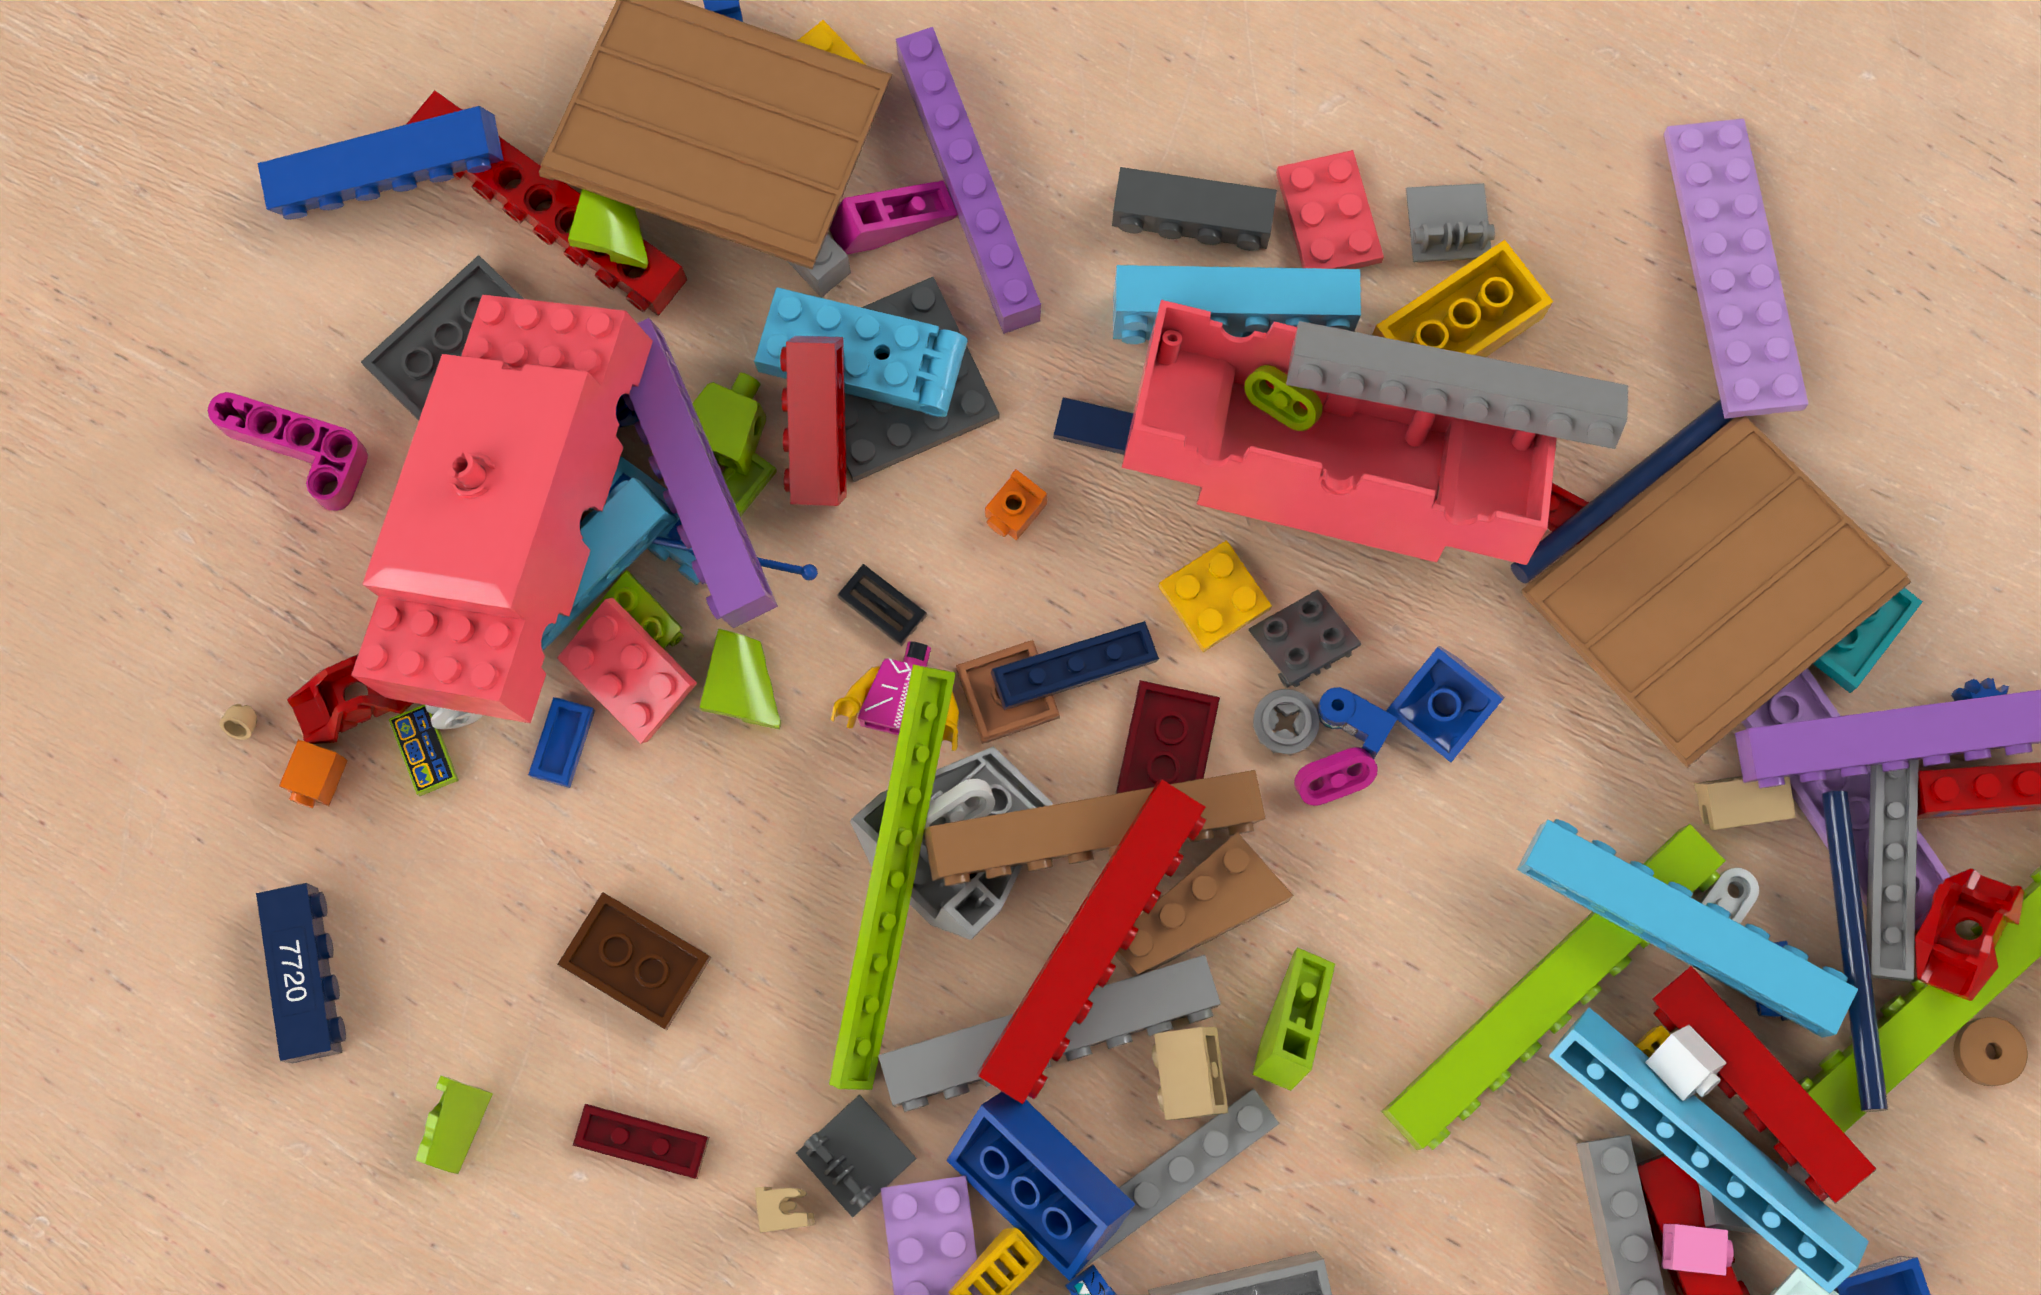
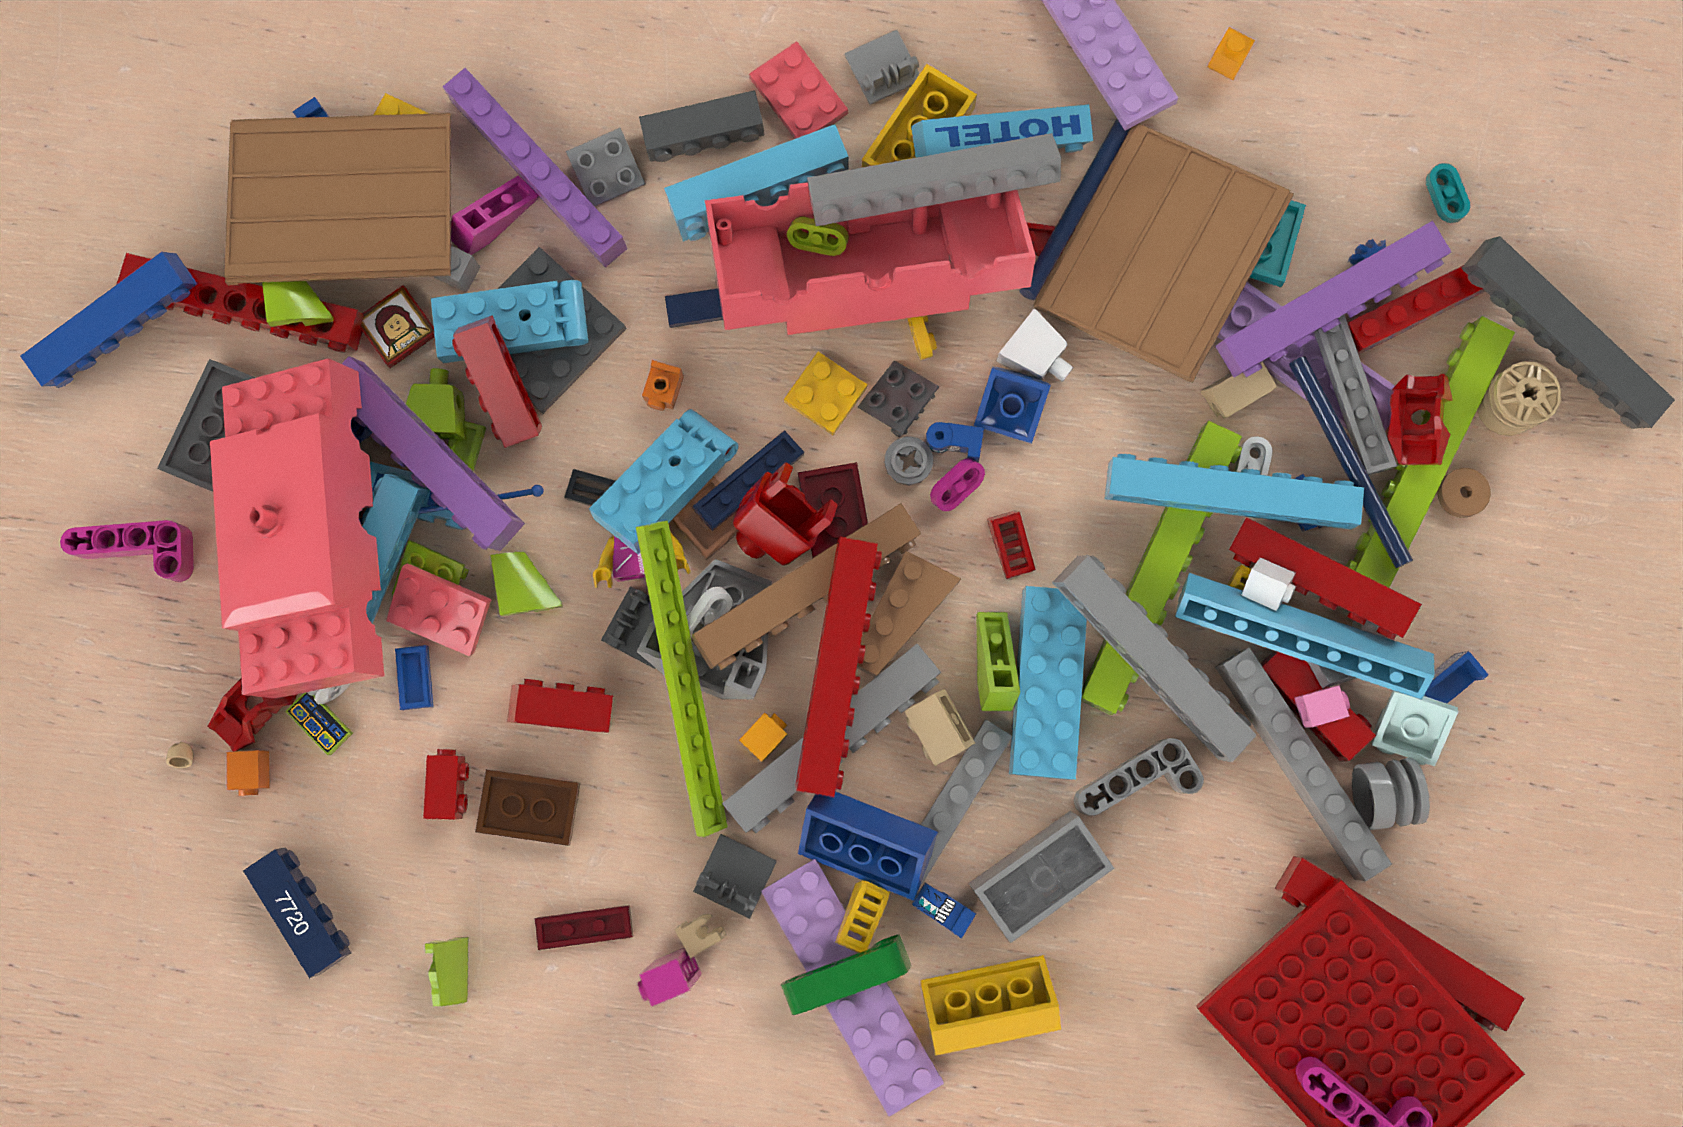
camera: 20 degrees left, 5 degrees up
(544, 891) = (445, 785): none -> red brick
(719, 305) = (397, 326): none -> tile
(723, 1244) = (668, 977): none -> dark pink brick
(726, 851) = (560, 706): none -> red wedge
(855, 785) = (630, 624): none -> dark grey hinge
(957, 630) = (656, 488): none -> medium azure hinge
(965, 993) = (764, 736): none -> light orange brick
(1054, 212) = (605, 167): none -> light grey hinge
(1094, 728) = (779, 519): none -> red piece
(1353, 1075) = (1050, 686): none -> medium azure brick
(1361, 861) = (1018, 529): none -> red slope
(1364, 580) = (923, 341): none -> yellow plate
(1412, 1247) = (1133, 782): none -> light grey beam
(1502, 647) = (1036, 349): none -> white torso
(1502, 1098) = (1154, 657): none -> light grey brick
(1653, 384) = (1068, 124): none -> medium azure brick
(1898, 375) = (1231, 53): none -> light orange brick

